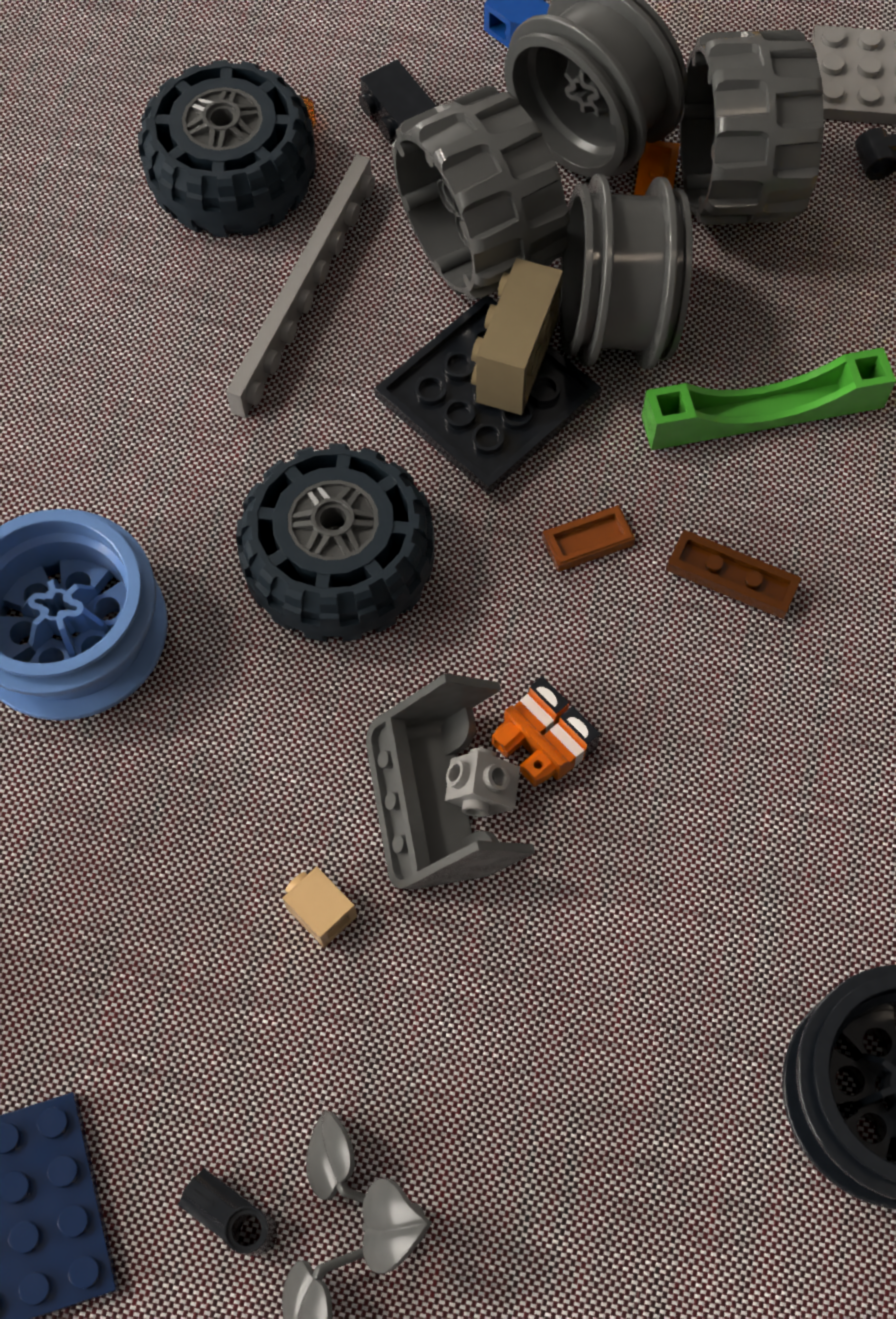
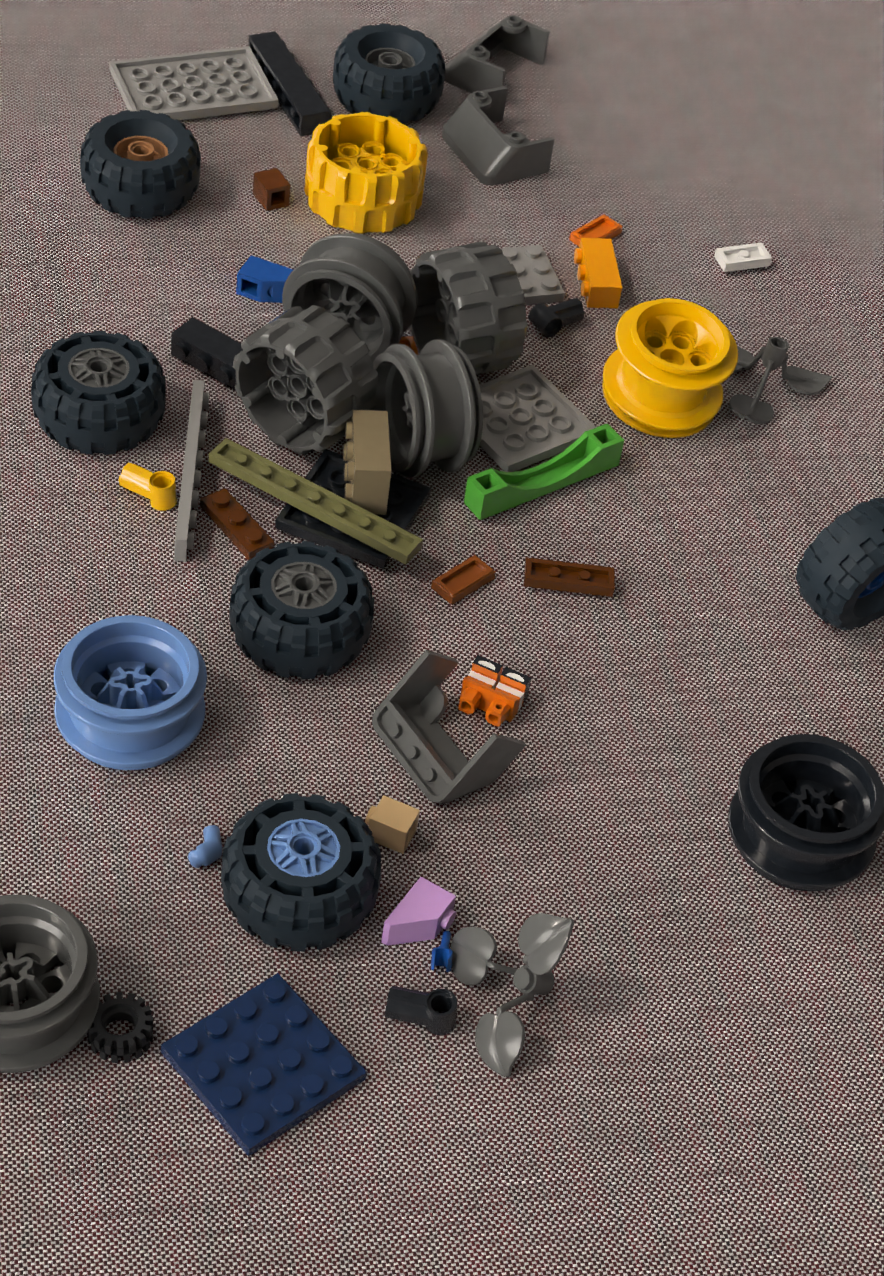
camera: 30 degrees left, 20 degrees down
(74, 871) = (209, 850): none -> medium blue arm
(163, 1006) = (301, 872): none -> black wheel
(240, 295) = (156, 486): none -> yellow piece
(292, 1063) = (420, 914): none -> lavender slope
(298, 1132) = (442, 955): none -> blue hand
(330, 379) = (236, 523): none -> reddish brown plate
(434, 378) = (316, 501): none -> olive plate
(482, 783) = (467, 726): light grey brick -> none
(775, 303) = (527, 419): none -> light grey plate

